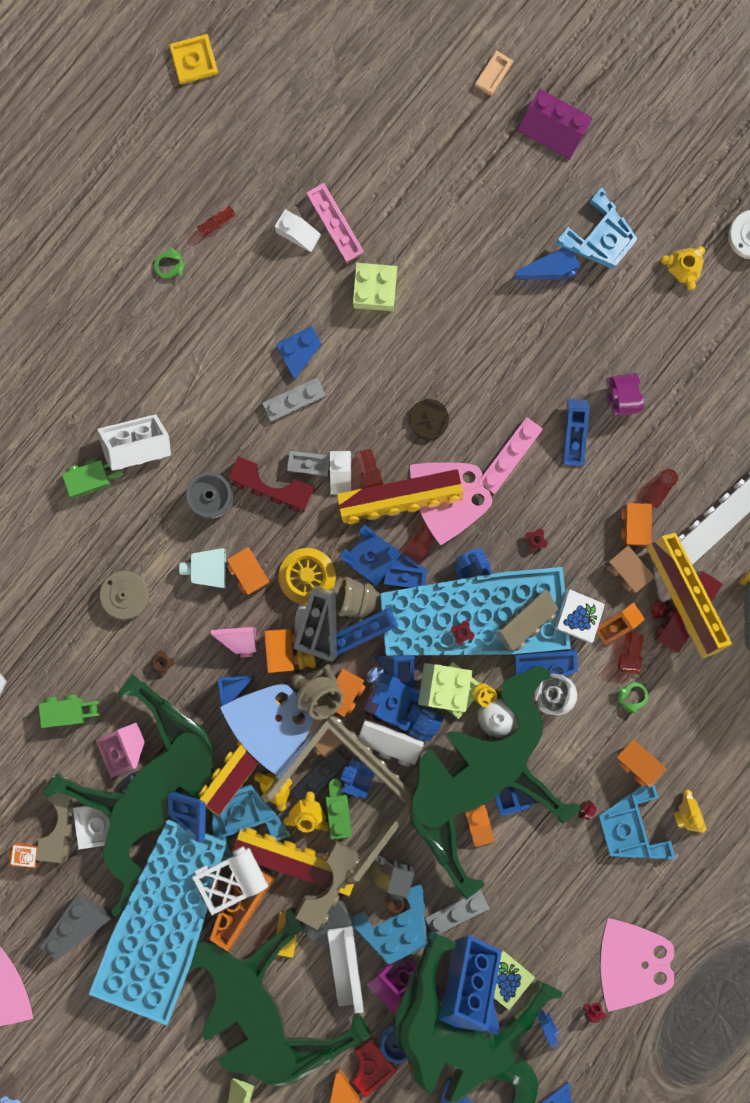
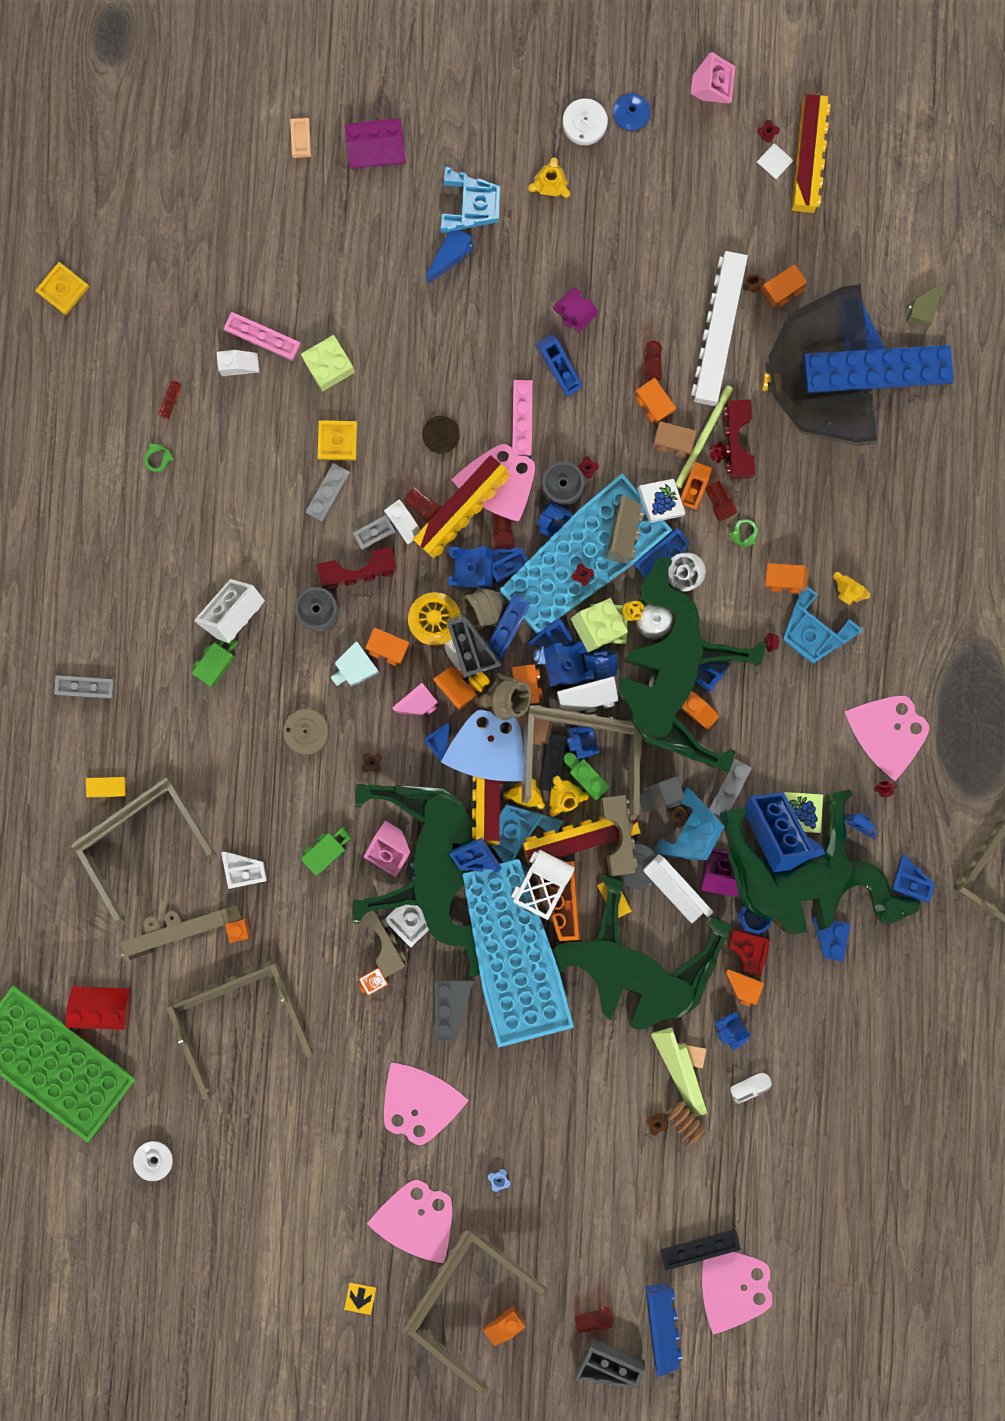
camera: 40 degrees left, 0 degrees up
(299, 349) = (304, 452): blue wing -> none
(335, 360) = (337, 440): none -> yellow plate
(499, 551) = (556, 475): none -> dark grey wheel
(651, 589) = (703, 437): none -> yellowish green piece
(689, 595) = (731, 425): yellow brick -> none

